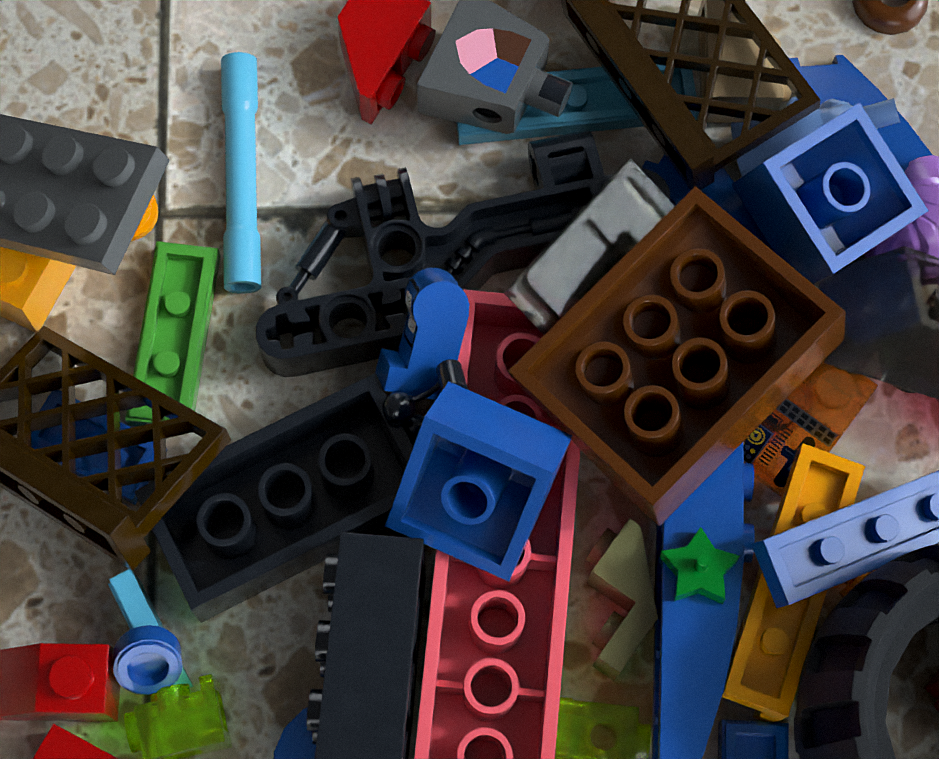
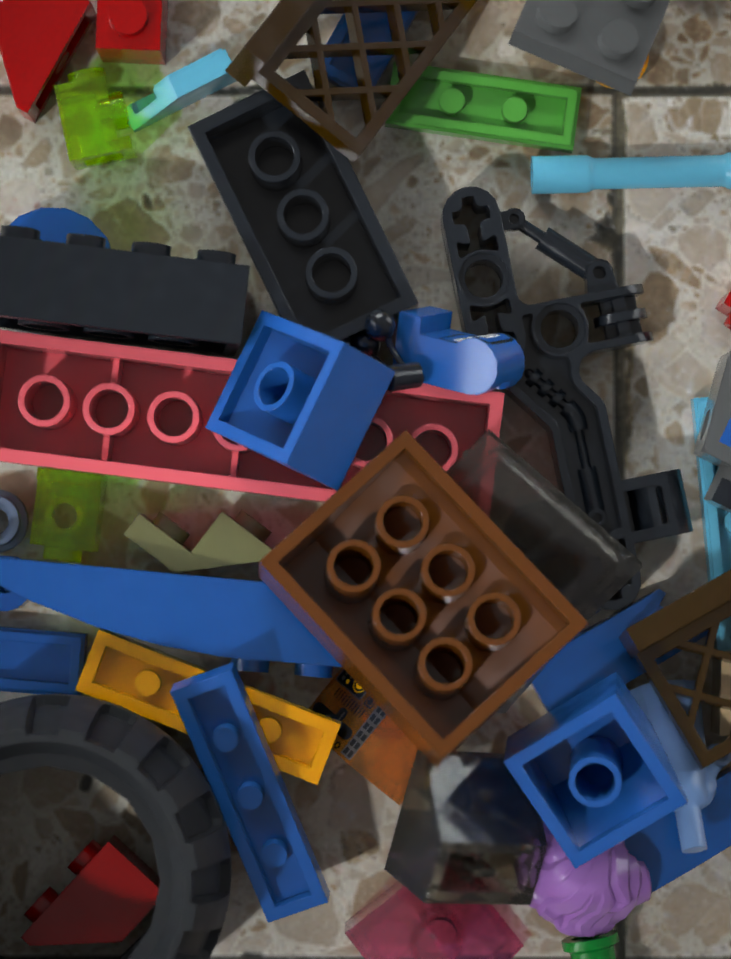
camera: 90 degrees right, 15 degrees up
(147, 659) = (148, 87): blue tile -> none
(699, 568) = (214, 612): green piece -> none

